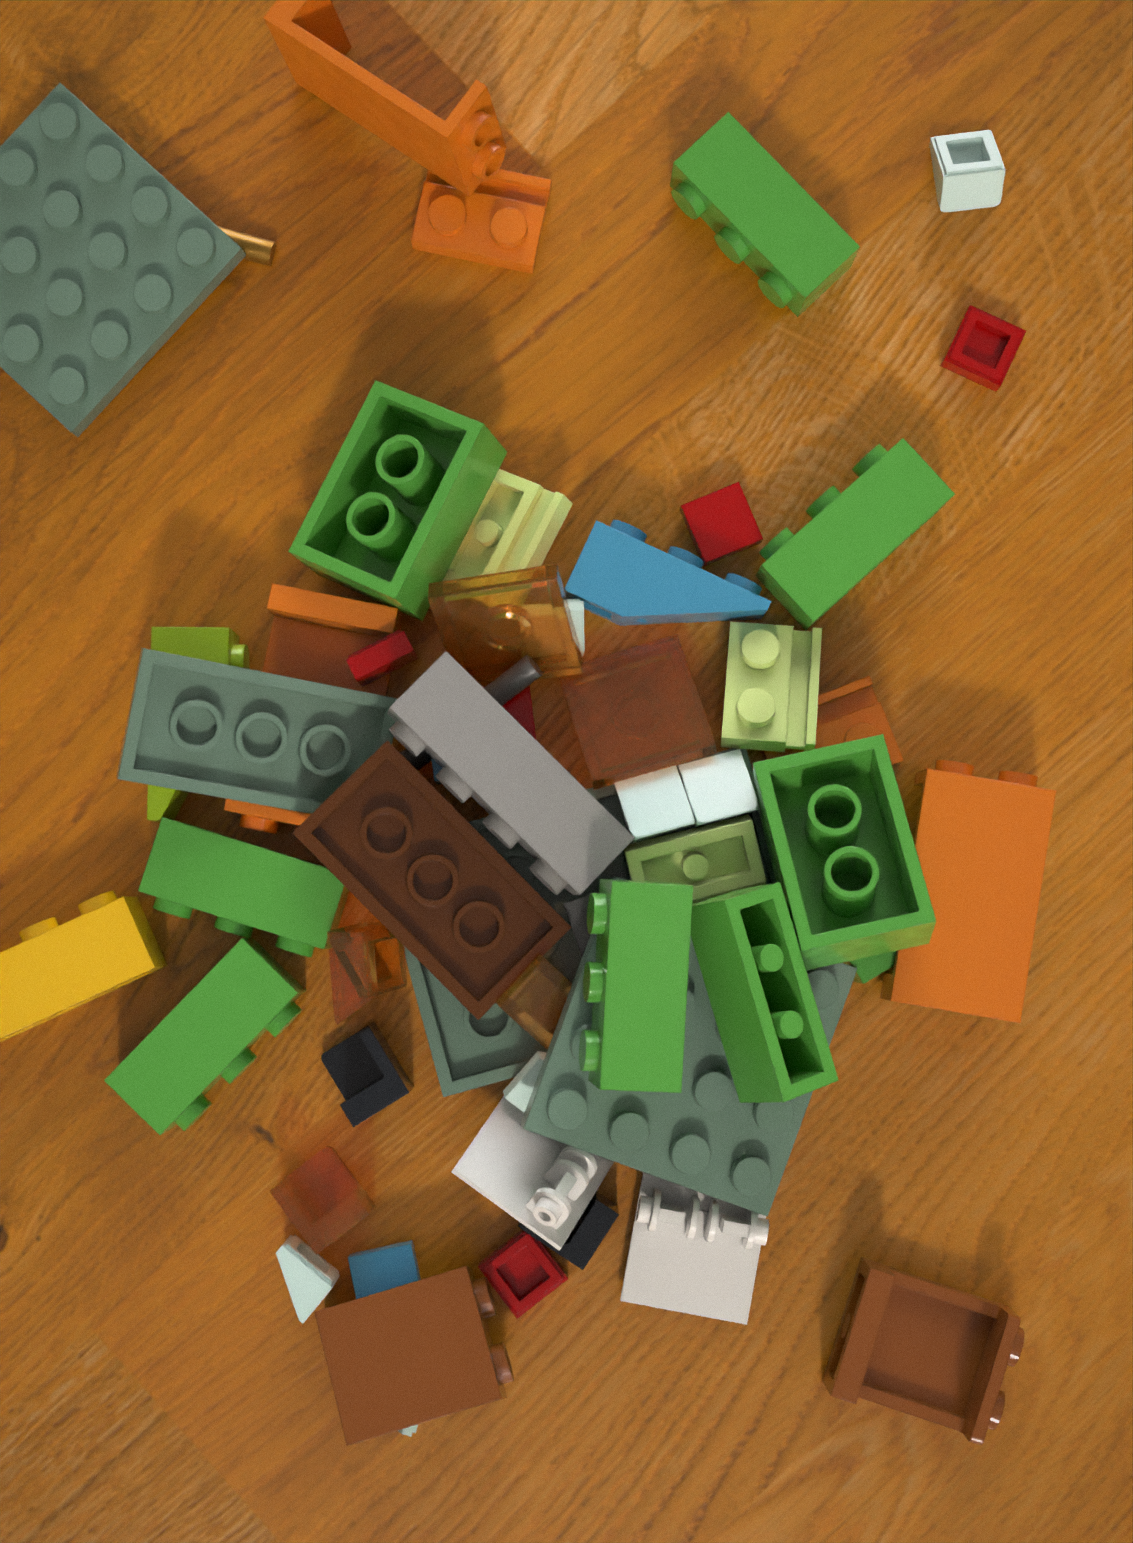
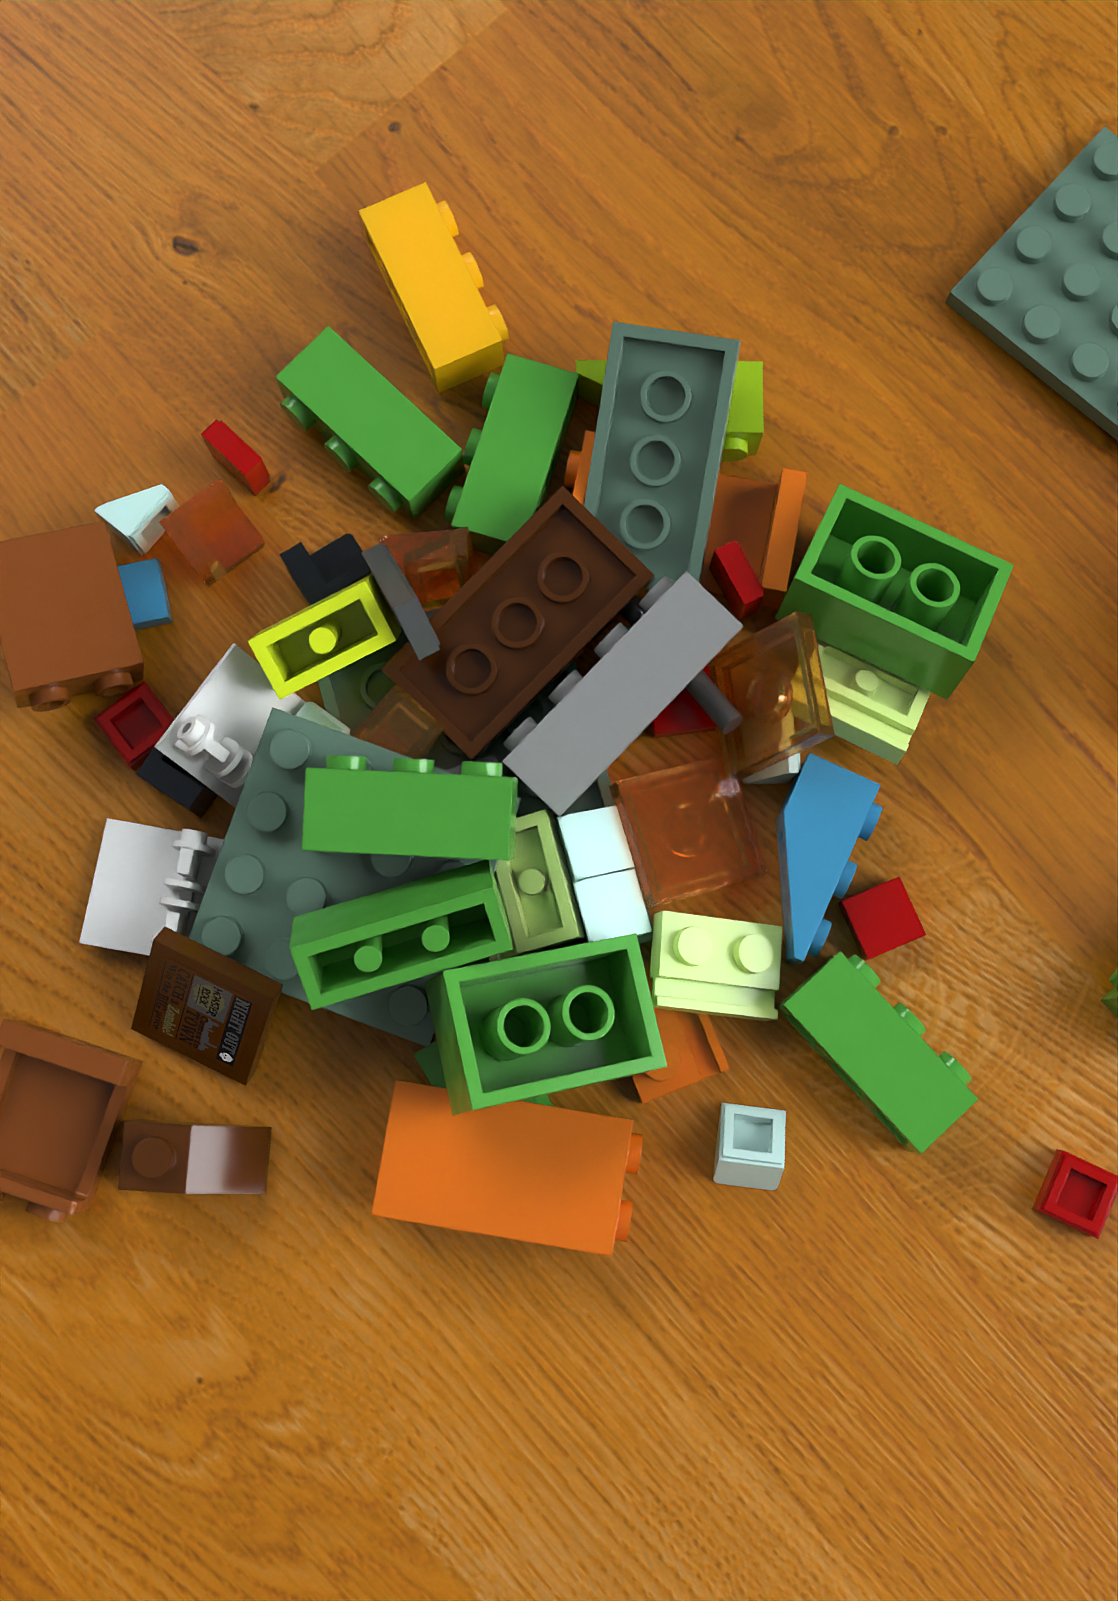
camera: 90 degrees right, 5 degrees down
(240, 1176) = (236, 456): none -> red tile
(411, 998) = (402, 600): none -> dark grey tile
(446, 1076) = (325, 637): none -> neon yellow brick
(814, 1192) = (205, 1005): none -> reddish brown tile
(940, 657) = (750, 1146): none -> light aqua slope
(960, 1201) = (194, 1157): none -> reddish brown slope

